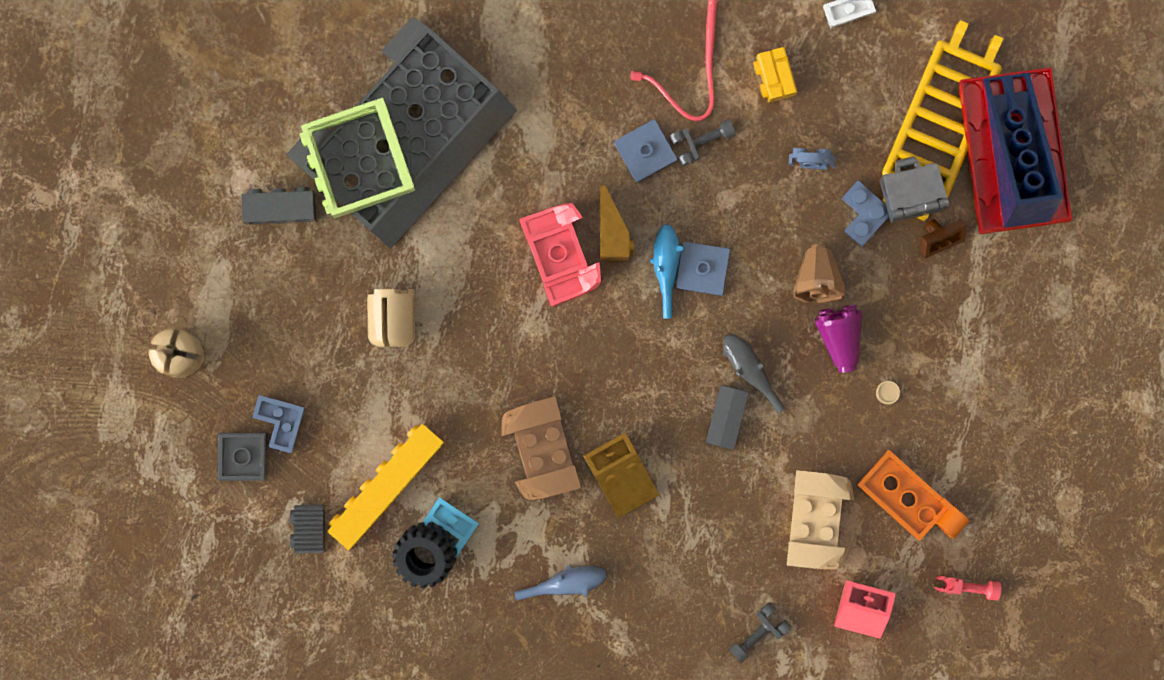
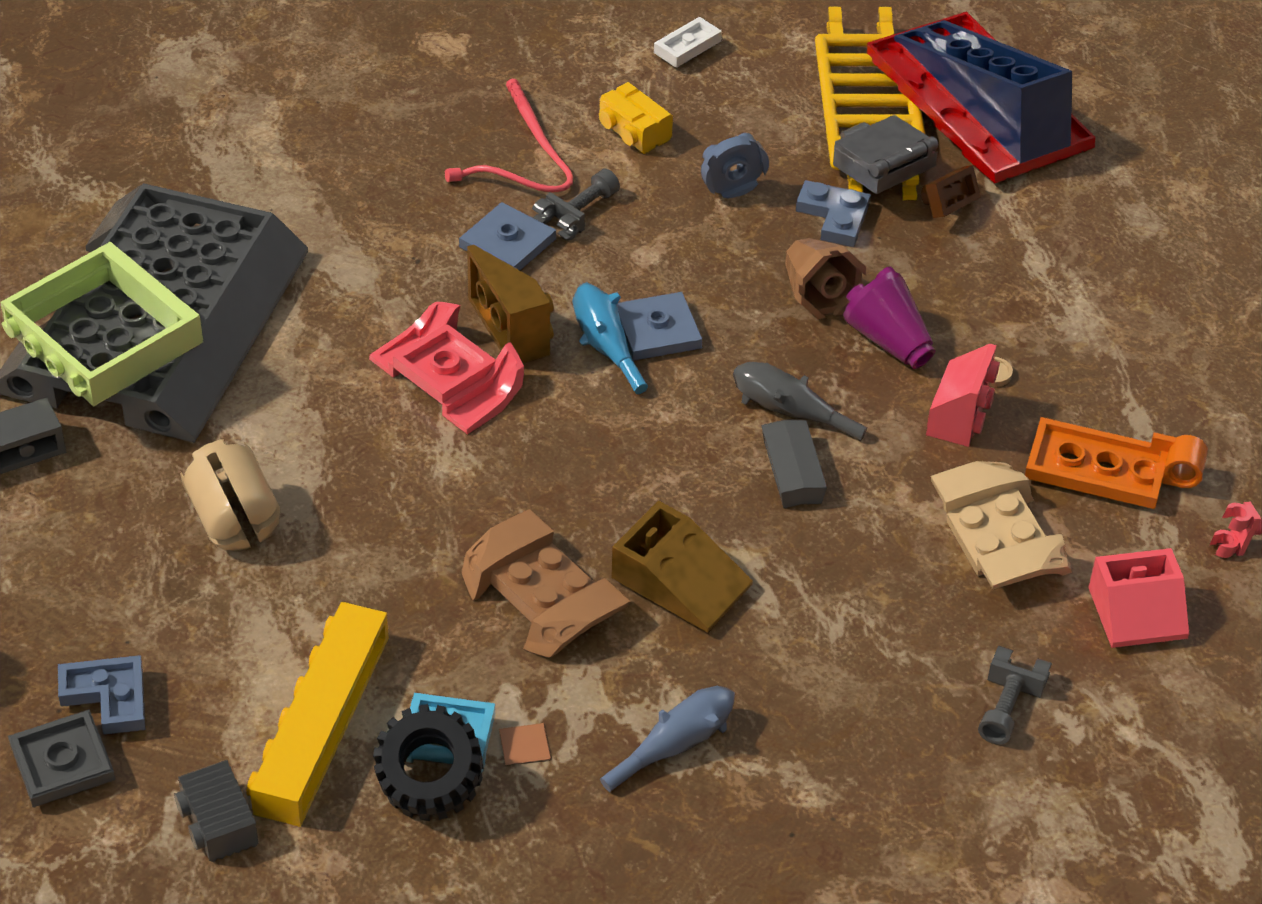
camera: 25 degrees left, 40 degrees down
(487, 547) = (524, 744): none -> nougat sticker
(849, 417) = (963, 395): none -> coral slope

